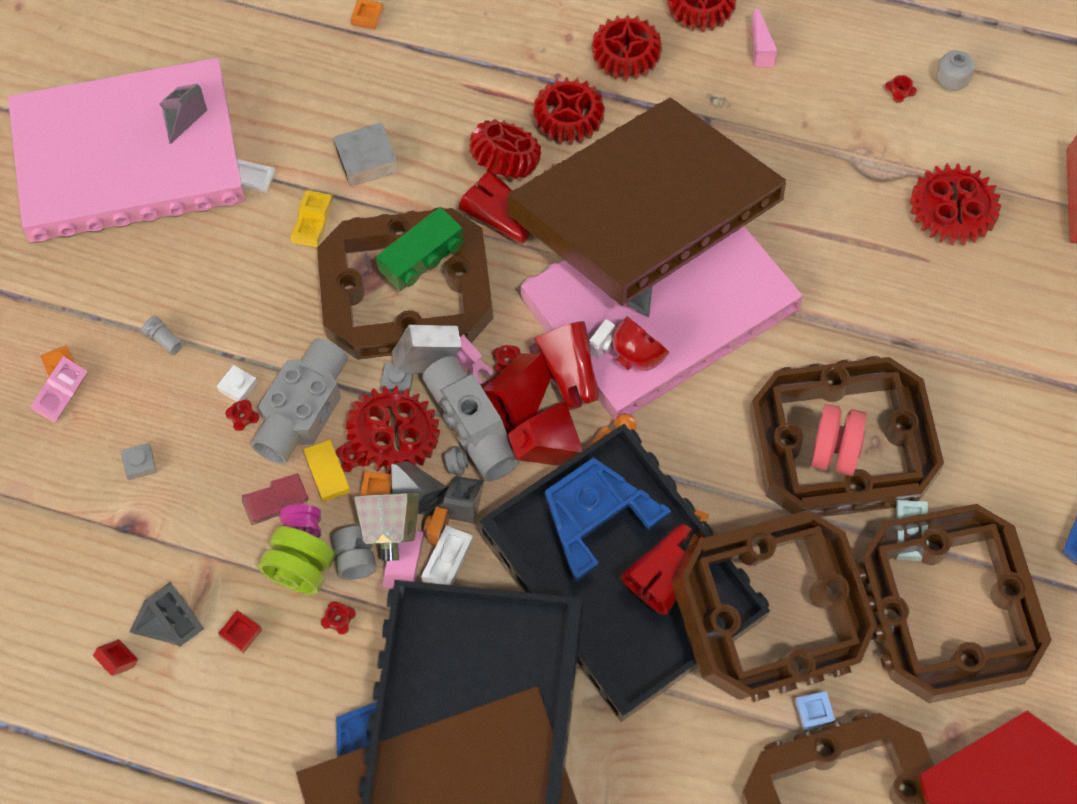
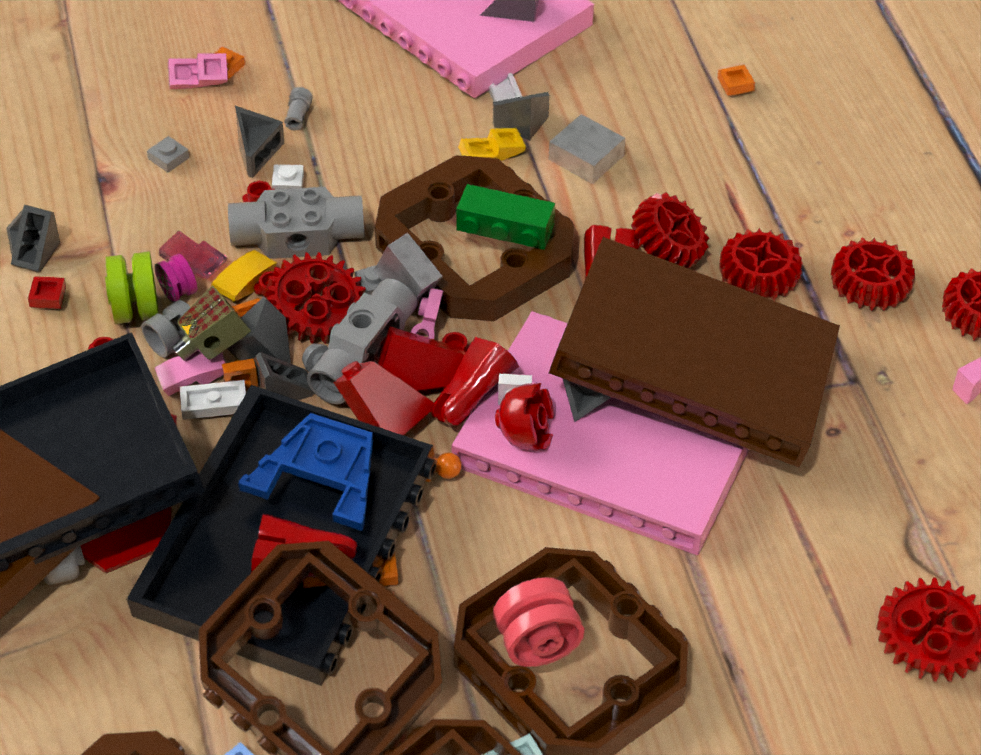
camera: 55 degrees right, 15 degrees down
(182, 386) = (258, 138): none -> dark grey slope
(297, 177) = (523, 113): none -> dark grey slope

